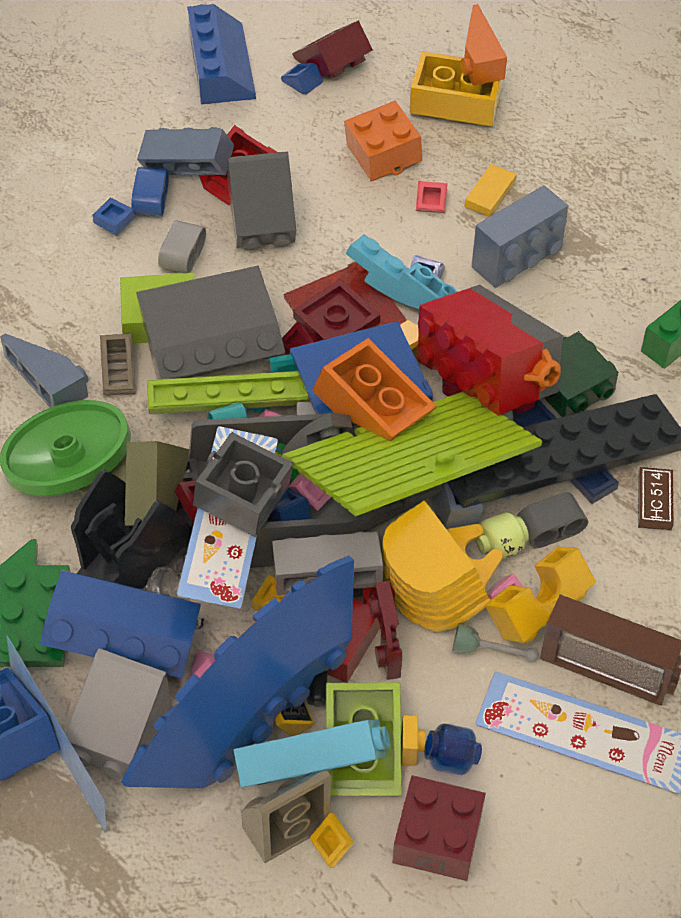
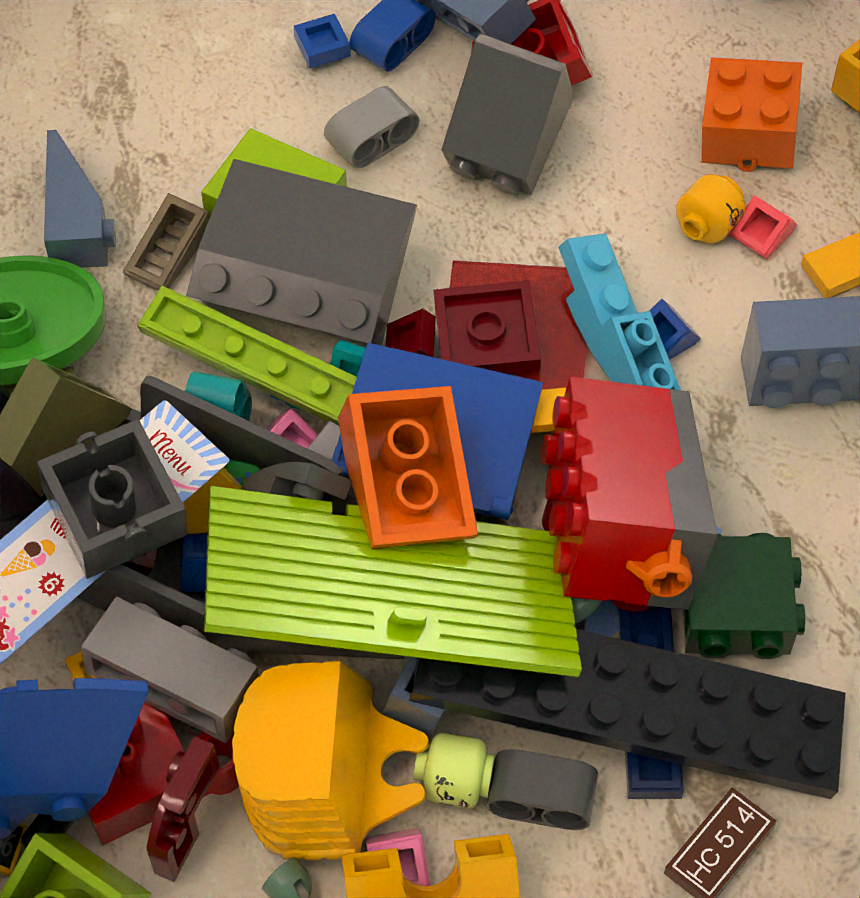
camera: 35 degrees right, 5 degrees up
(400, 199) = (710, 208): none -> yellow head

